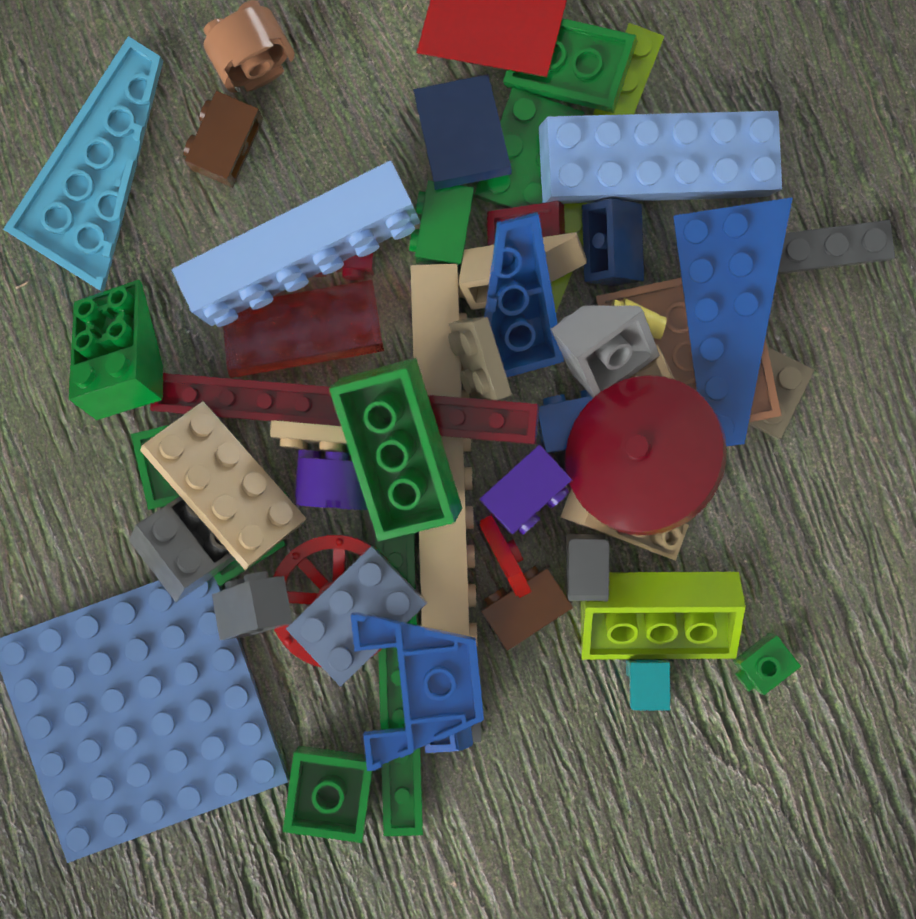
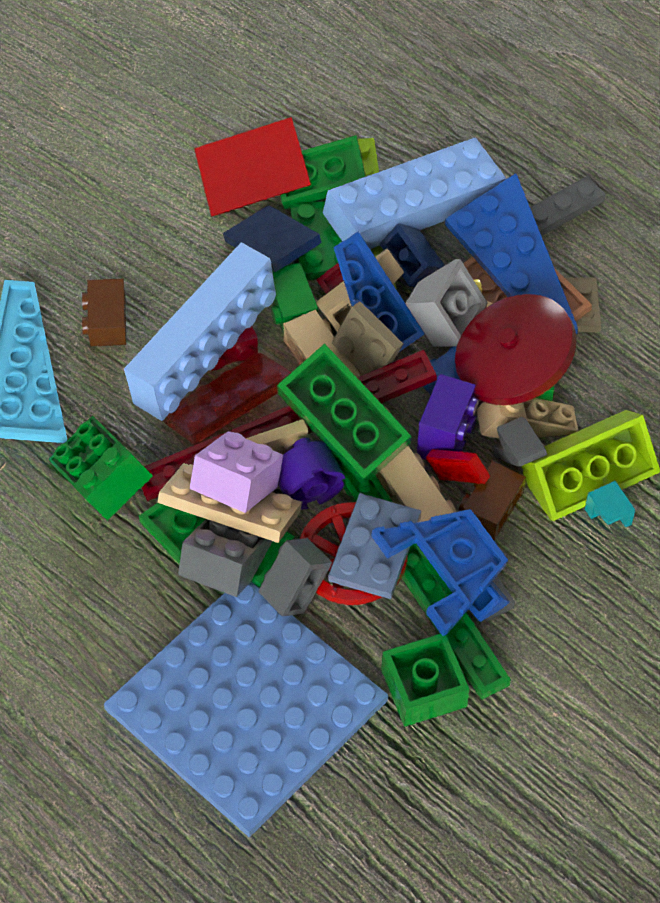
camera: 30 degrees left, 30 degrees down
(237, 464) = (236, 471): none -> lavender brick
(247, 47) = (95, 248): nougat brick -> none

